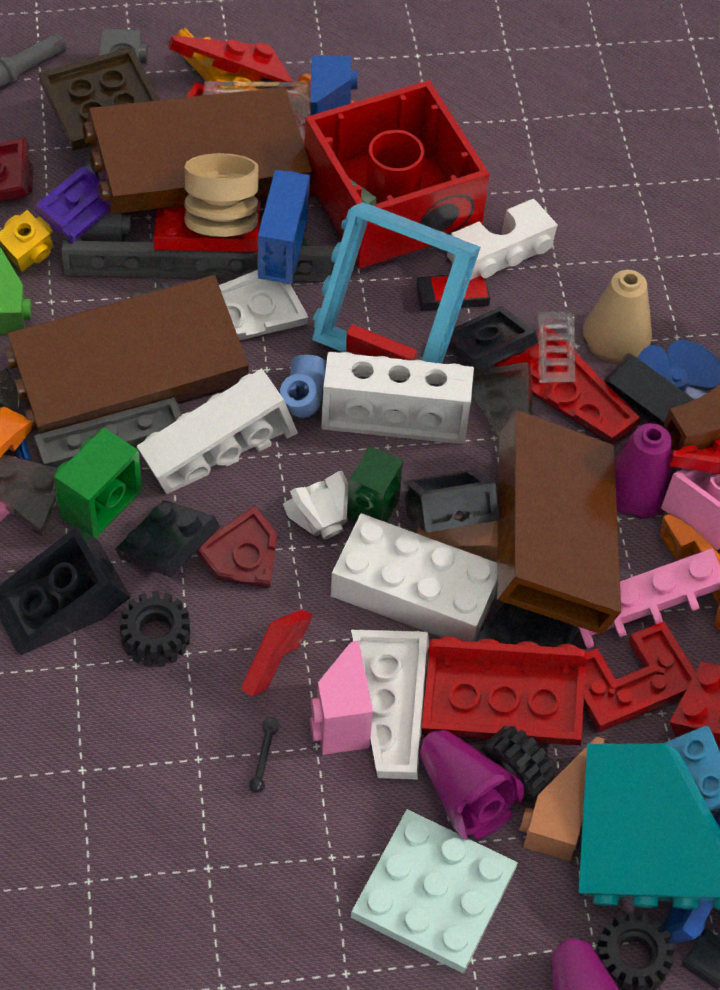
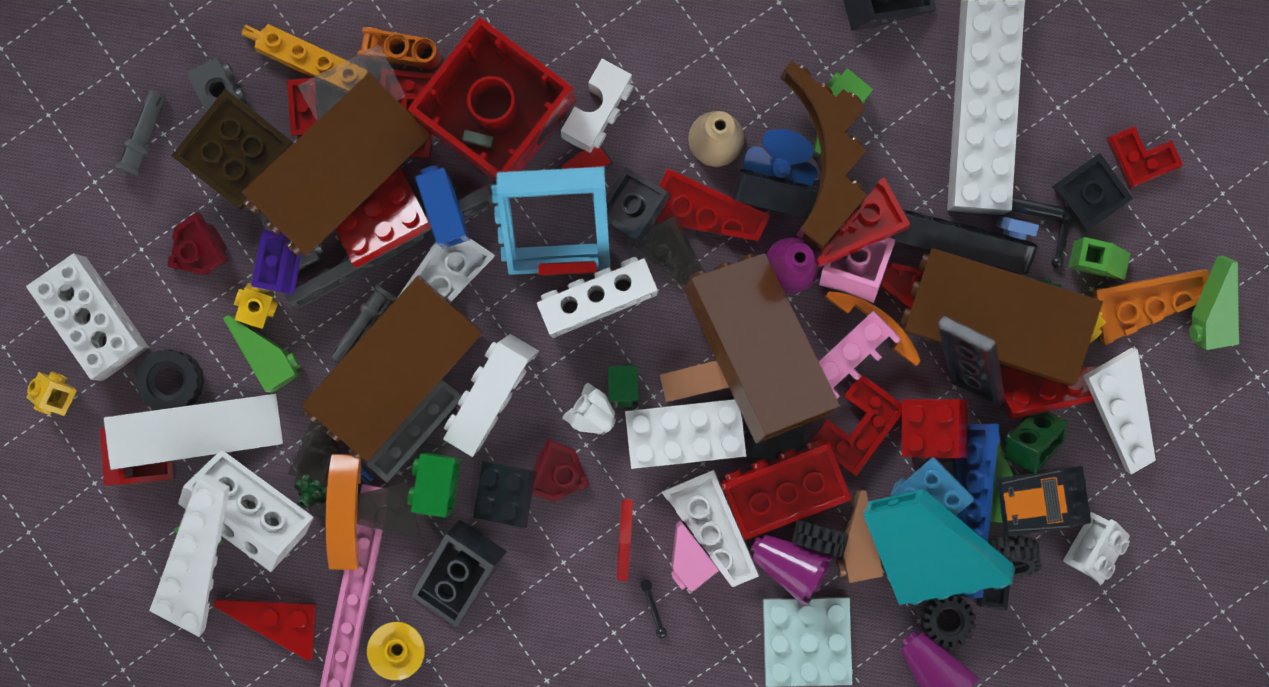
camera: 25 degrees left, 30 degrees up
(149, 610) = (524, 577): black tyre -> none
(221, 194) = (384, 211): tan wheel -> none
(235, 57) = (312, 36): red wing -> none
(304, 386) = (529, 324): medium blue cylinder -> none
(331, 82) = (397, 41): blue slope -> none
(436, 499) = (680, 389): black window -> none
(556, 320) = (674, 167): clear slope -> none

